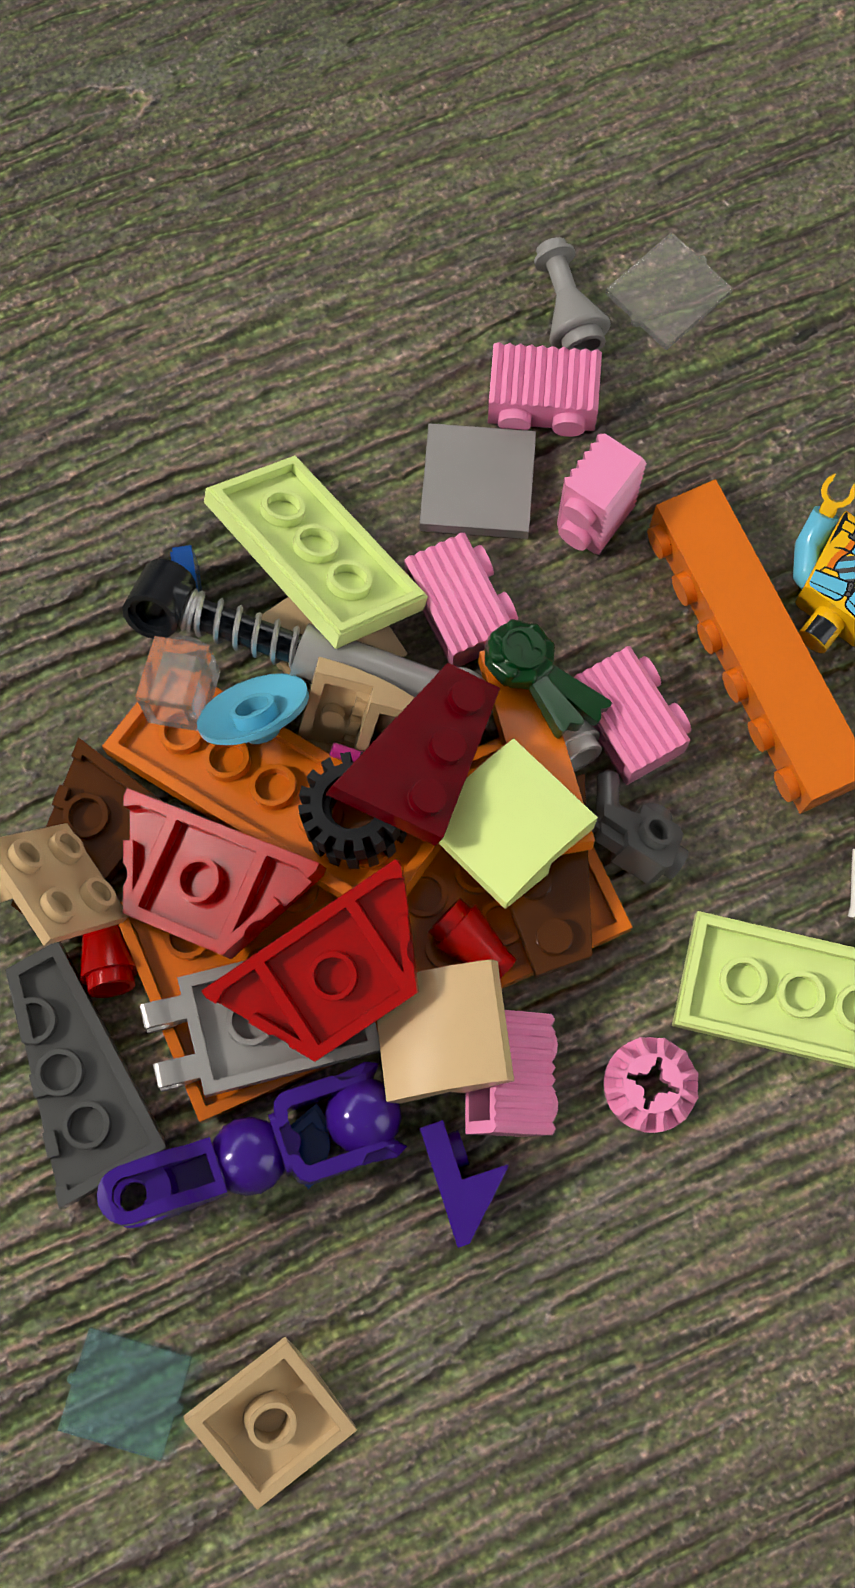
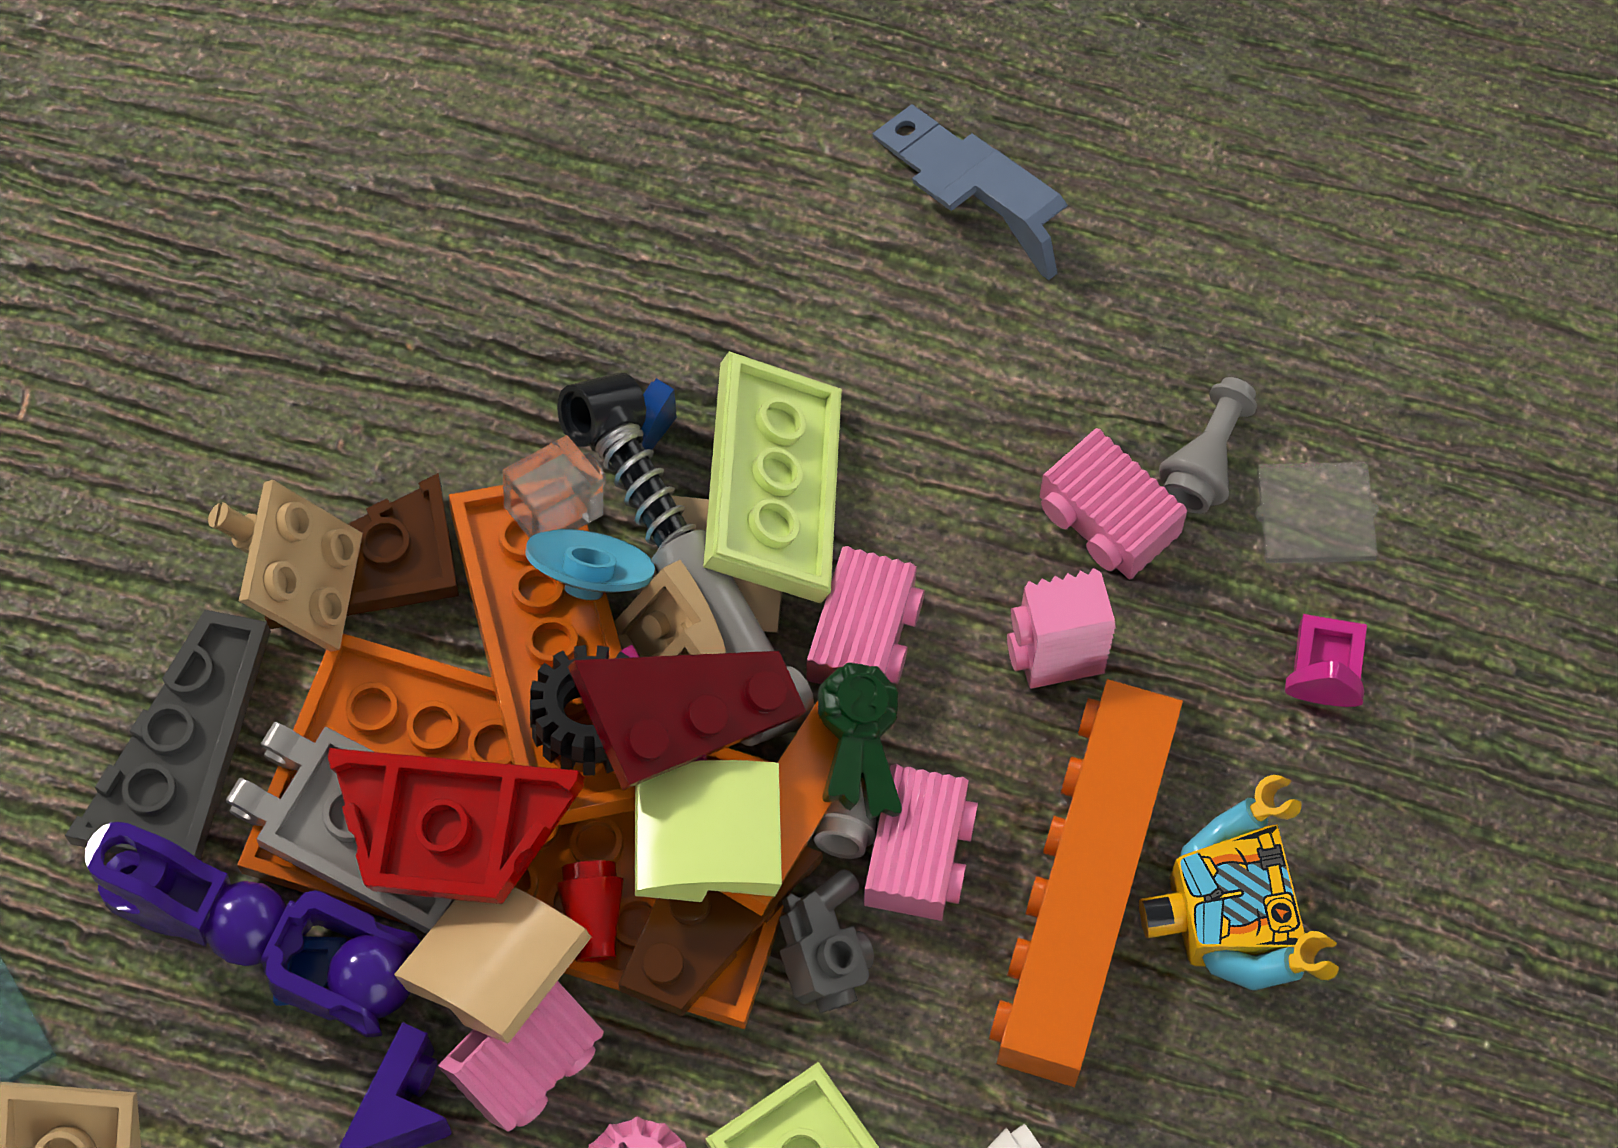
camera: 40 degrees right, 10 degrees down
(107, 963) = (287, 674): red cone -> none
(206, 877) = (424, 666): wing -> none
(241, 236) = (960, 168): none -> sand blue piece
(478, 481) = (981, 538): light grey tile -> none
(765, 381) = (1328, 662): none -> dark pink tile

